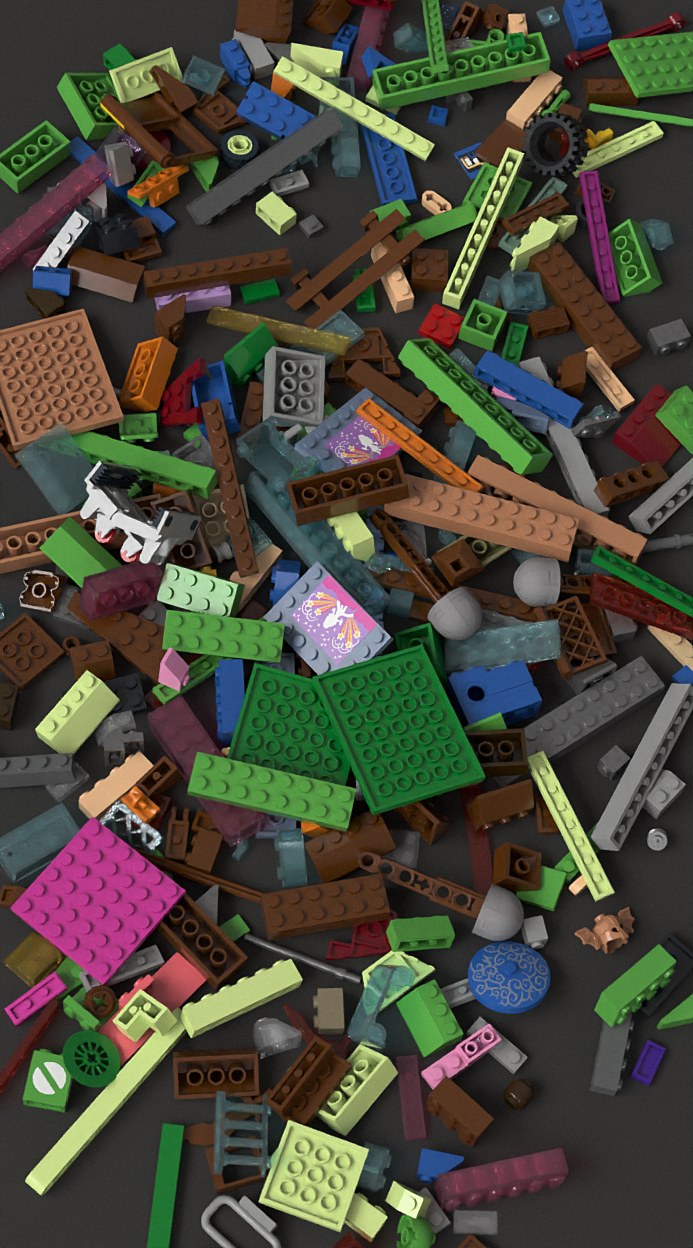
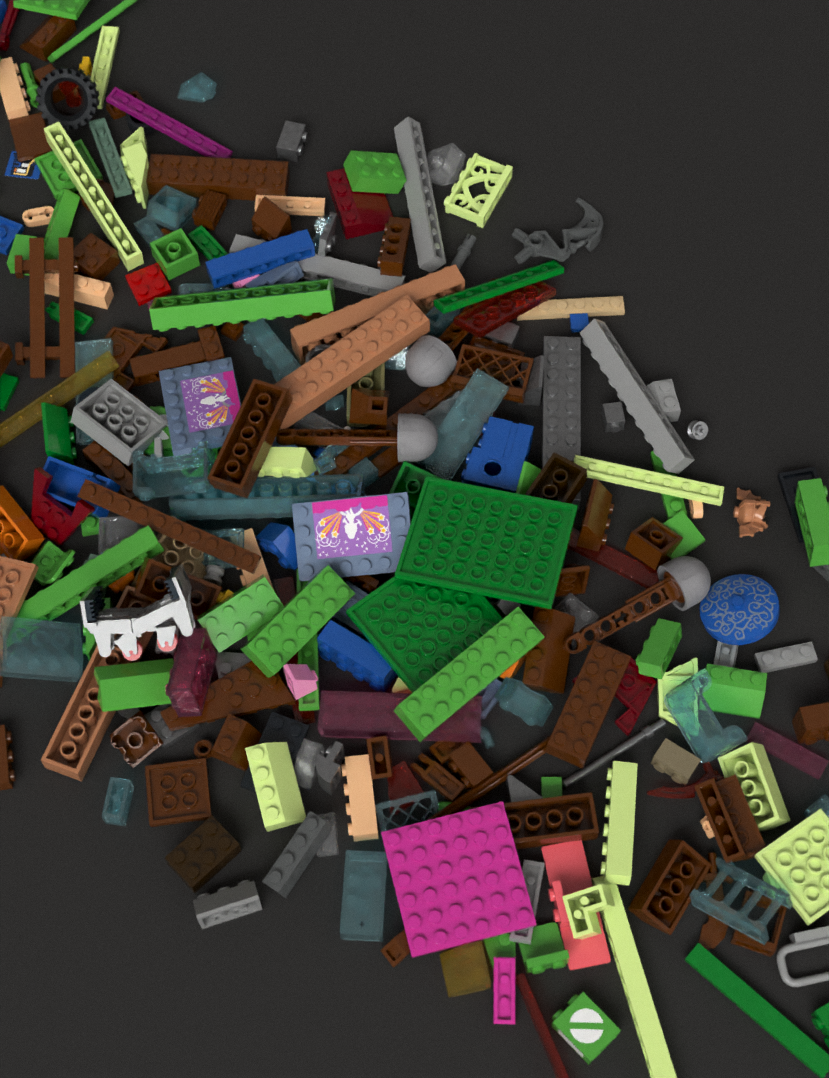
camera: 45 degrees left, 0 degrees up
(106, 1048) = (610, 982): green piece -> none
(108, 998) = (552, 944): reddish brown gear -> none
(140, 805) = (395, 787): orange hips -> none
(275, 1037) = (671, 820): clear slope -> none
(416, 447) = (244, 368): orange tile -> none
(462, 1056) = (781, 688): bright pink slope -> none
(534, 932) = (716, 565): light grey brick -> none
(544, 818) = (623, 494): reddish brown plate -> none
(546, 209) = (113, 152): reddish brown plate -> none
(633, 259) = (207, 118): bright green slope -> none

